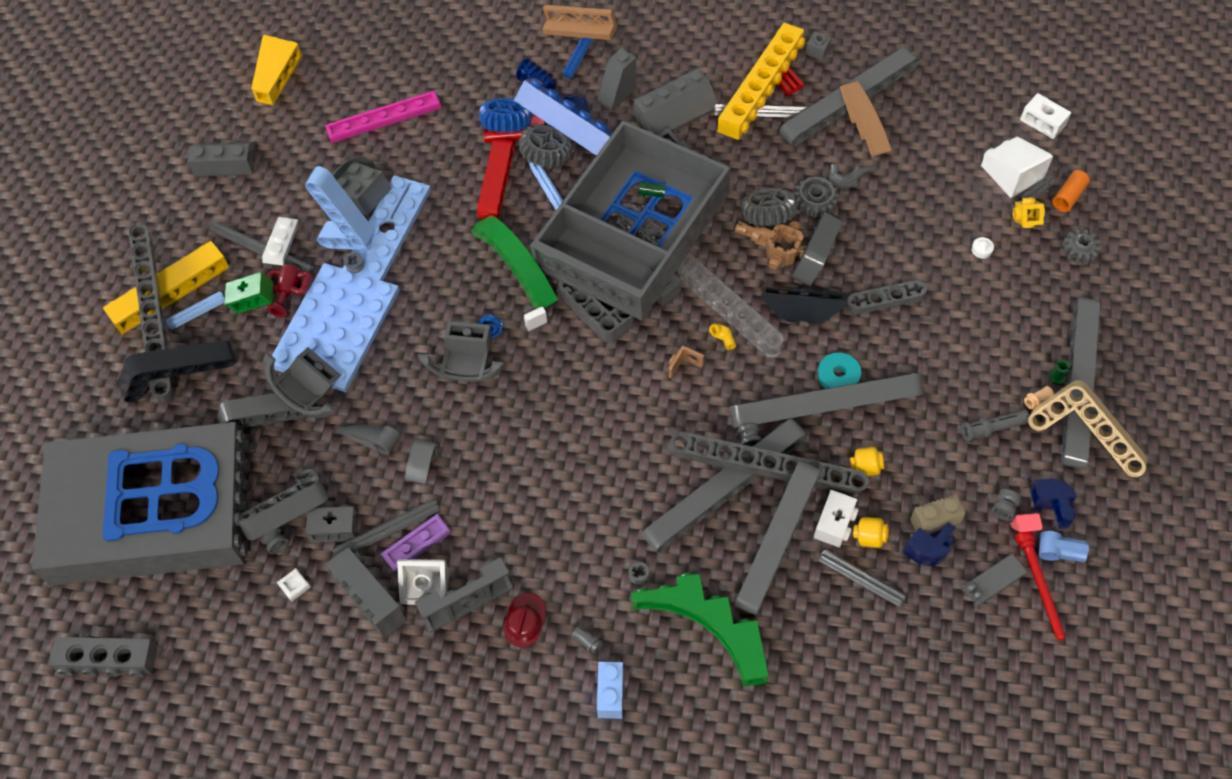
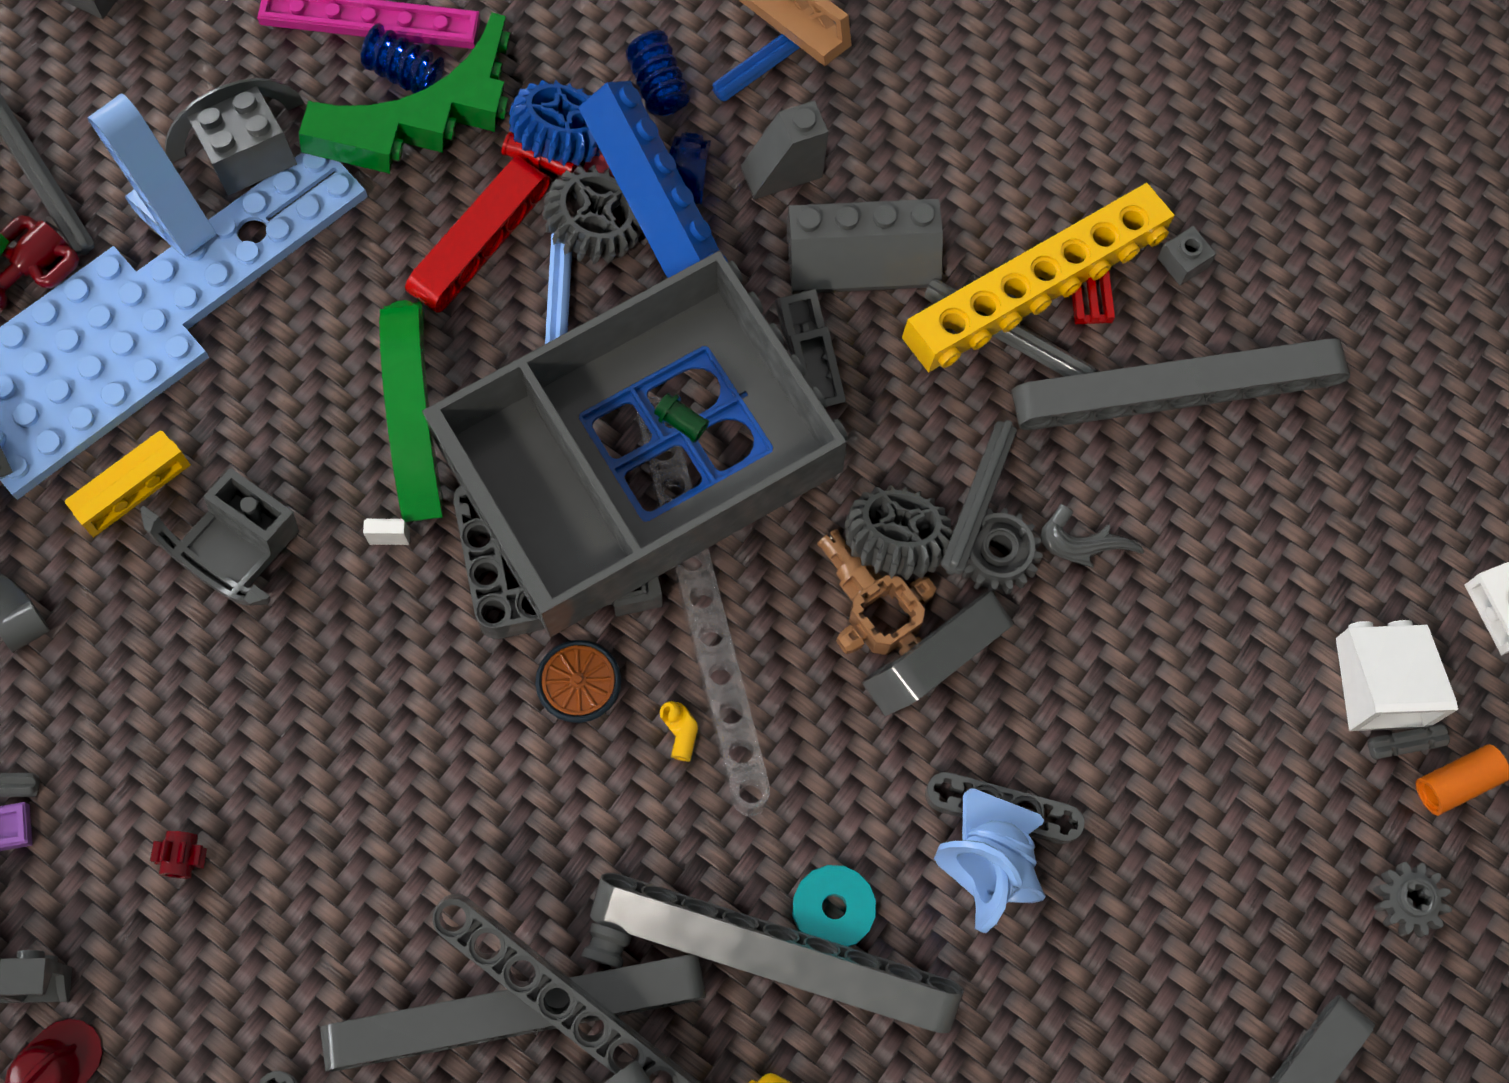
camera: 20 degrees right, 10 degrees up
(280, 241) = (62, 173): white plate -> none
(354, 256) = (142, 274): dark grey bush -> none
(396, 358) = (127, 483): none -> yellow panel
(412, 125) = (399, 61): none -> clear blue piece
(419, 460) = (59, 683): dark grey panel -> none
(424, 155) = (377, 132): none -> green arch
(494, 321) = (307, 504): blue plate -> none
(527, 496) = (178, 854): none -> dark red gear
(663, 338) = (578, 681): none -> dark orange wheel
(683, 354) = (572, 735): medium nougat bracket -> none
(794, 177) = (978, 498): none -> dark grey axle
(803, 304) = (848, 743): black wedge -> none
(864, 115) = (1176, 445): medium nougat slope -> none
(896, 315) = (994, 856): none -> light blue helmet
(982, 247) = (1234, 803): white tile -> none
(1033, 217) = (1355, 785): yellow brick -> none

